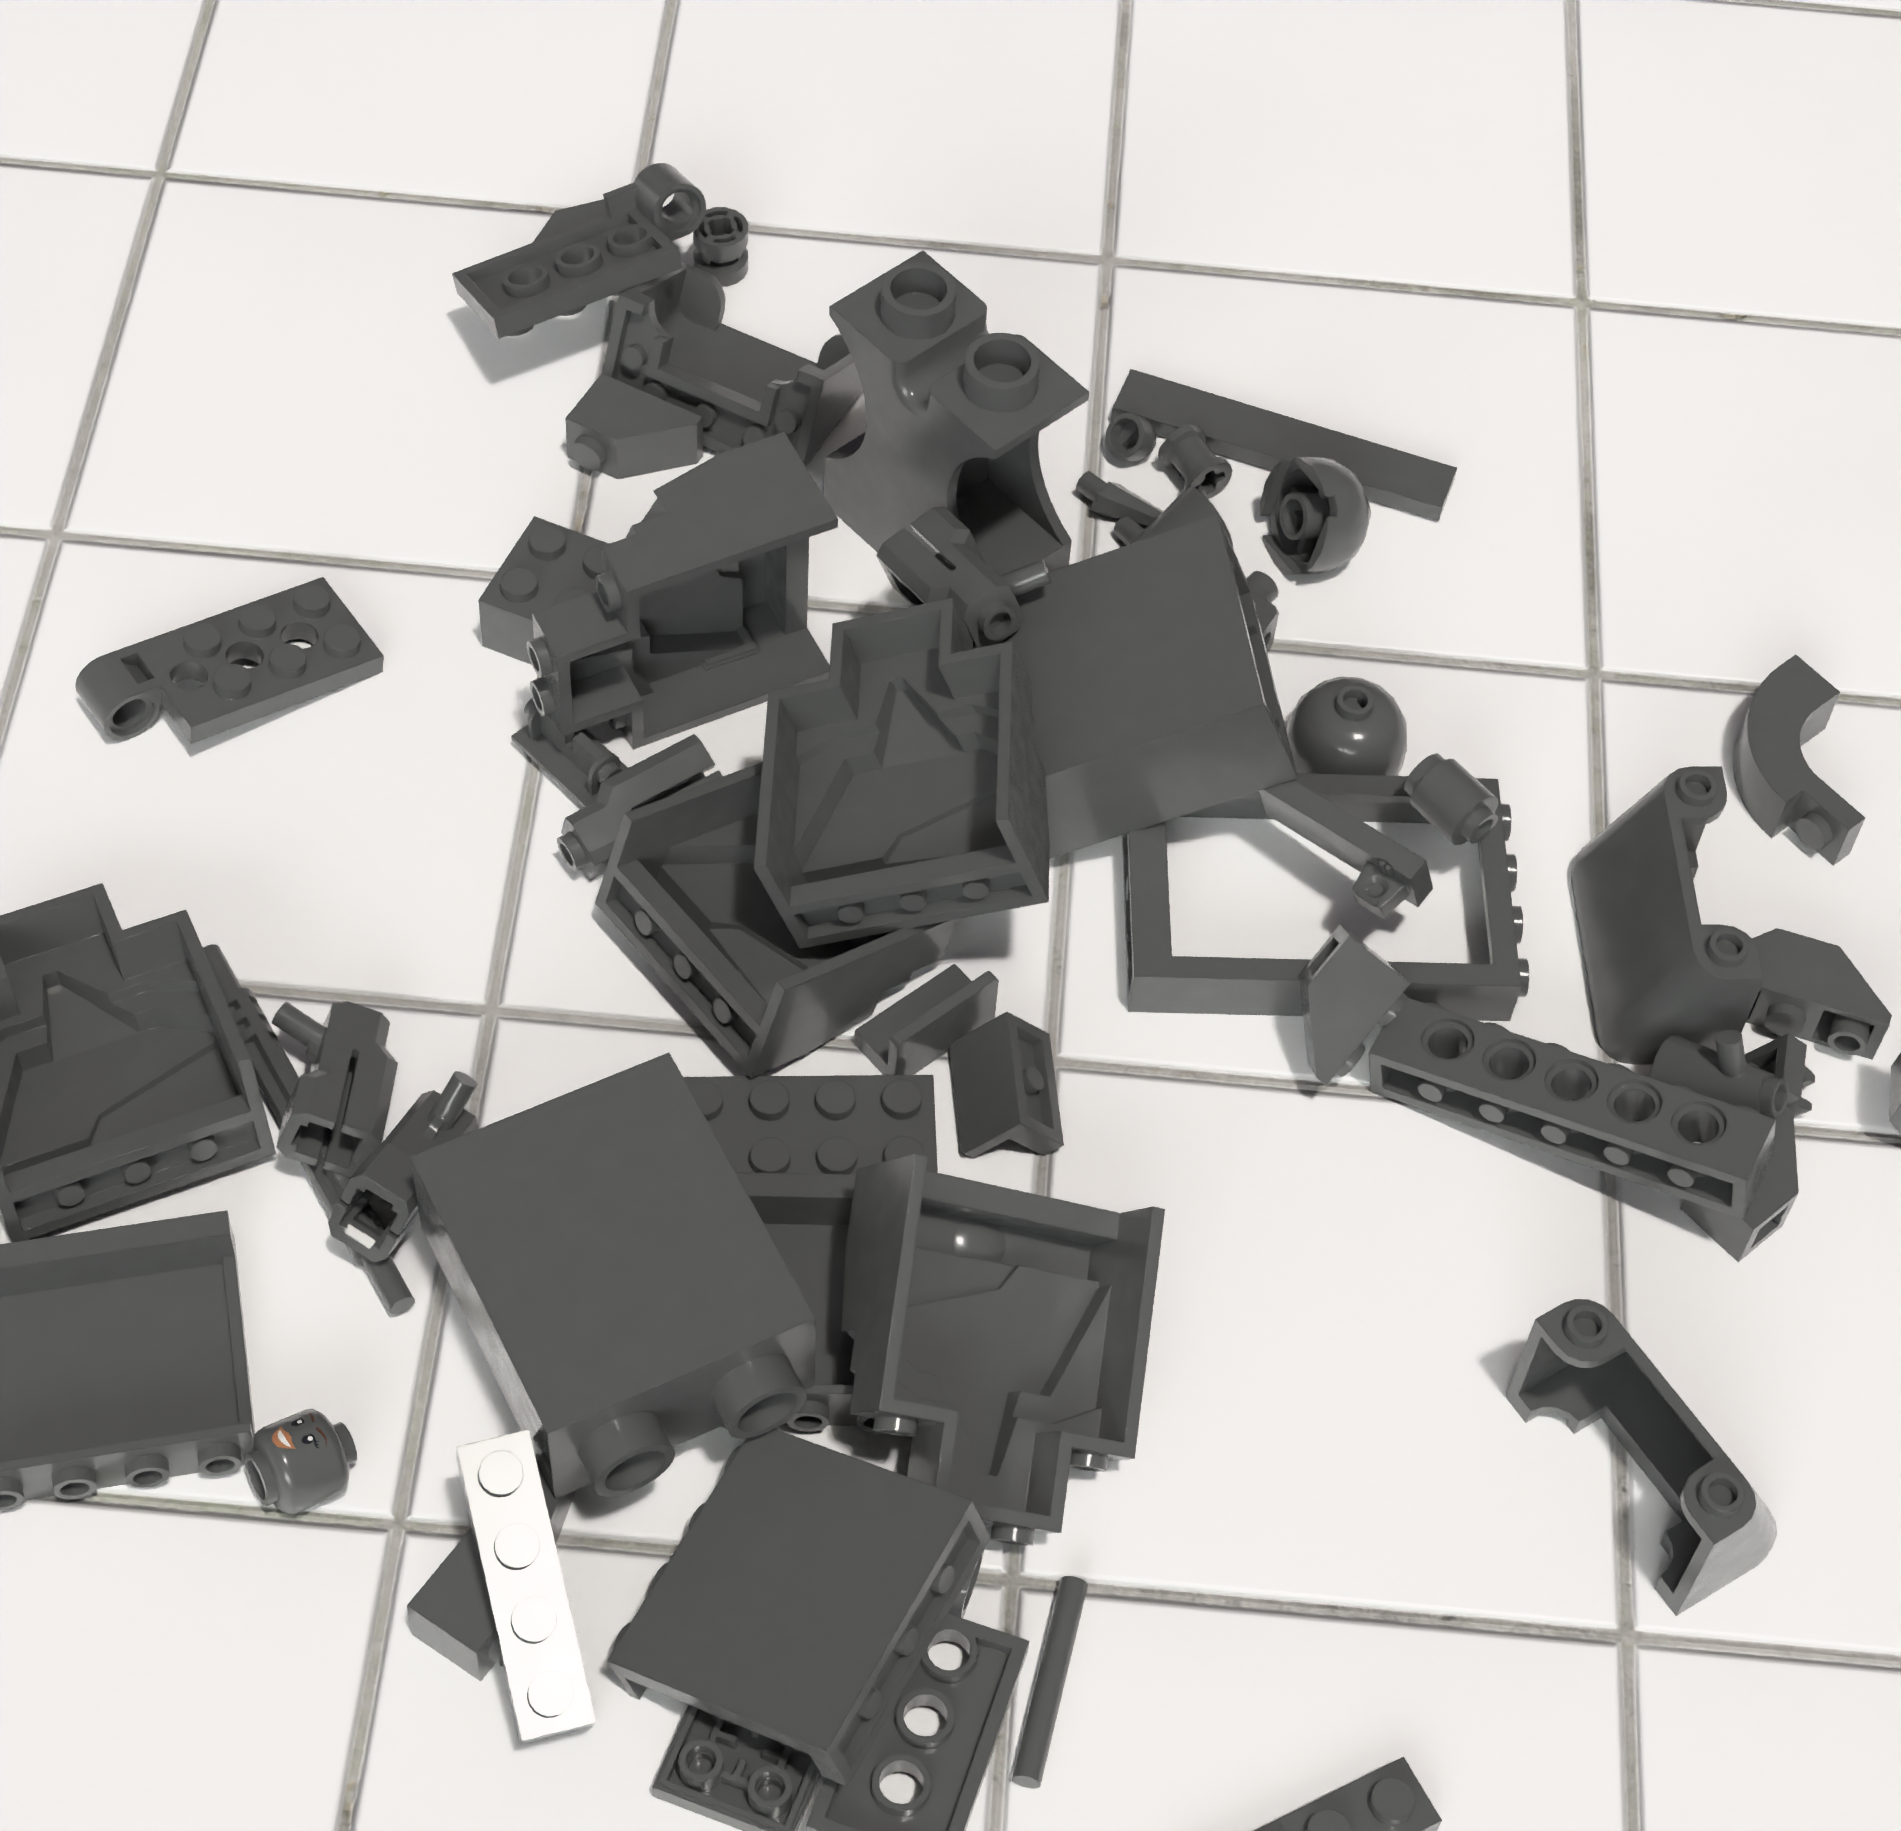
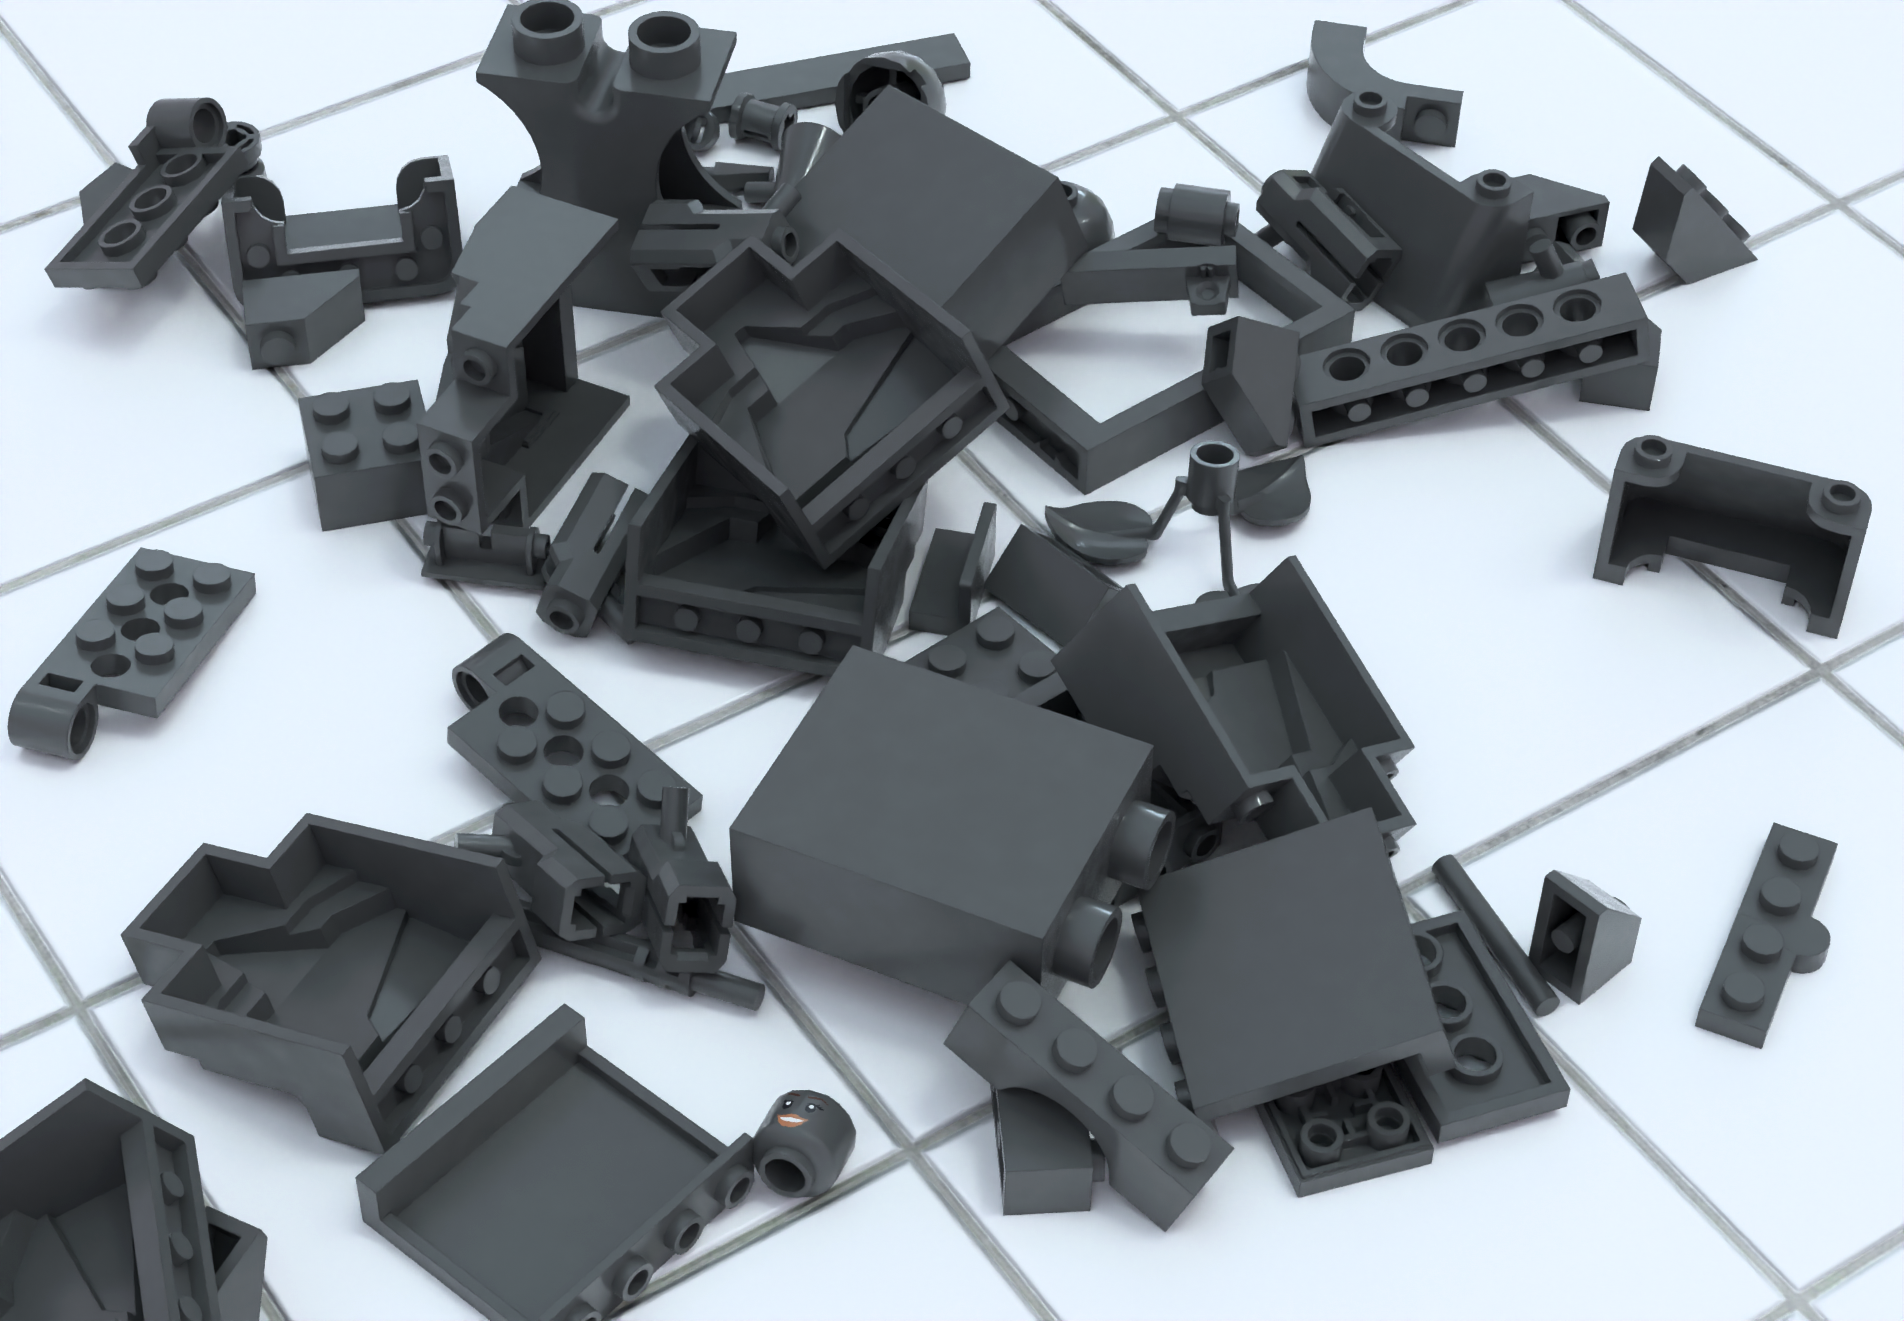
camera: 35 degrees left, 10 degrees down
(481, 952) = (516, 679): none -> dark grey hinge
(1107, 1739) = (1581, 935): none -> dark grey slope
(1273, 1113) = (1120, 530): none -> dark grey plant
(1576, 893) = (1328, 234): none -> dark grey piece

